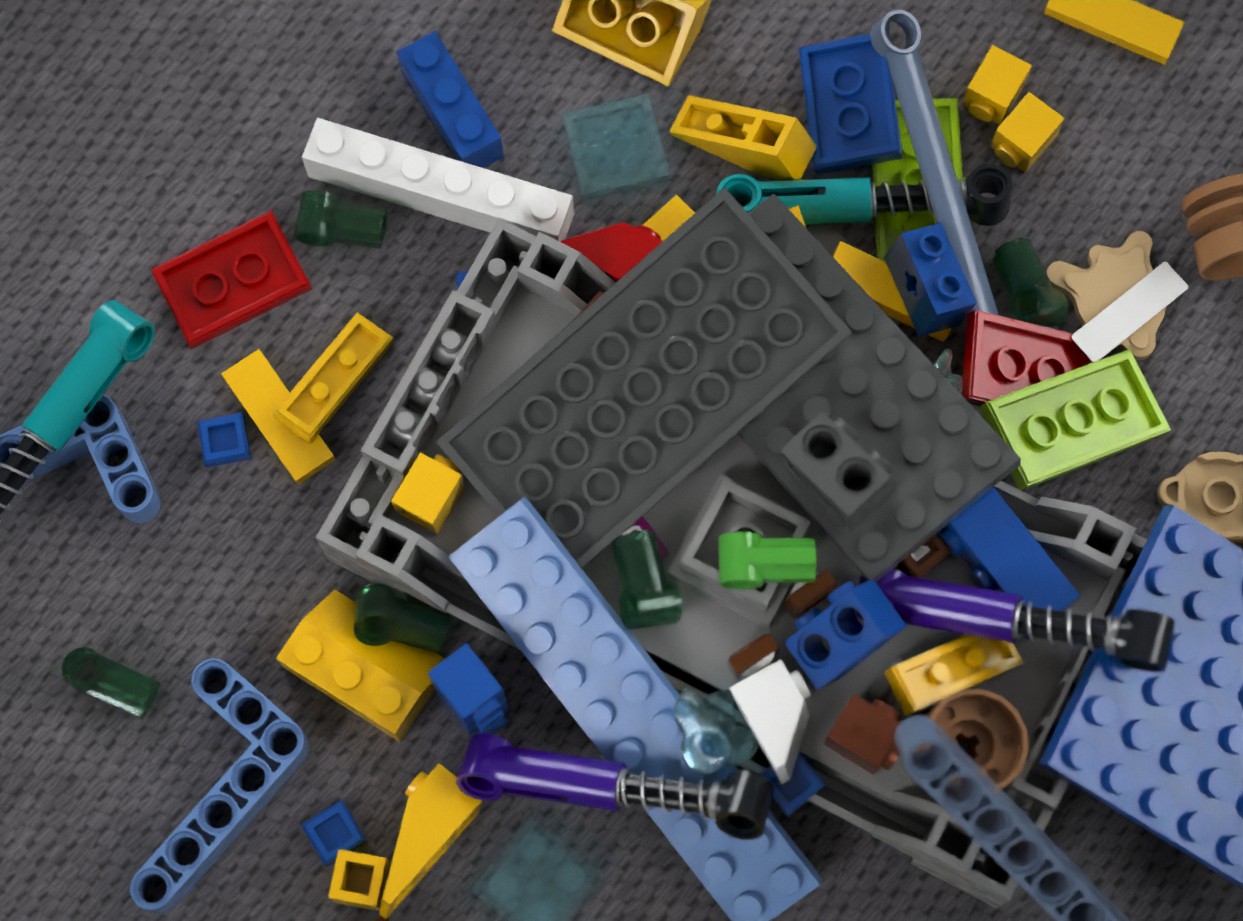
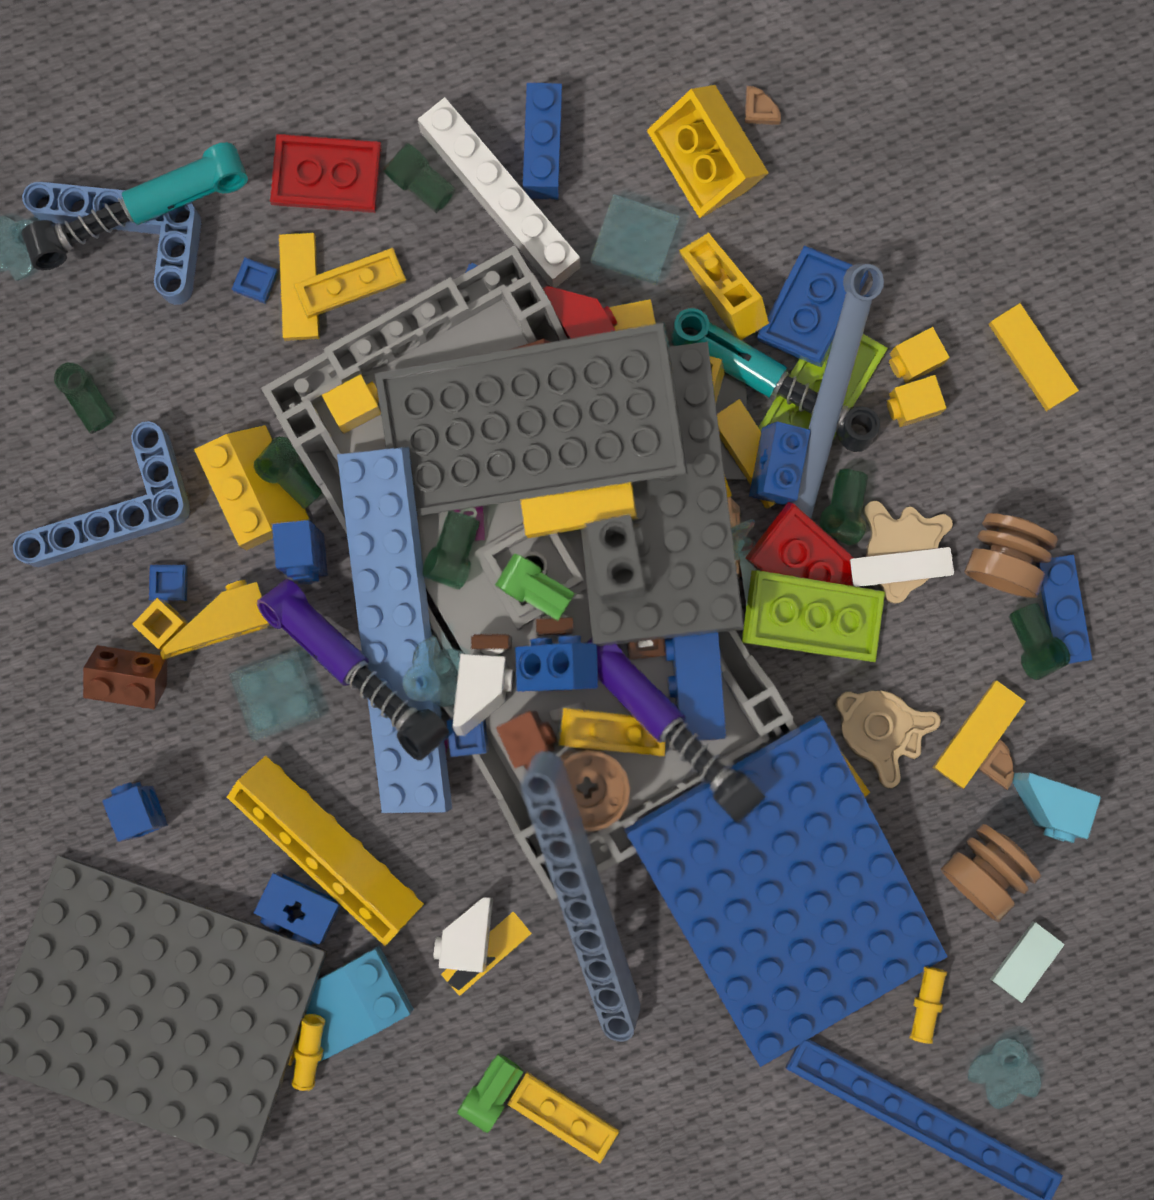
camera: 30 degrees right, 10 degrees up
(754, 449) = (574, 509): none -> yellow tile

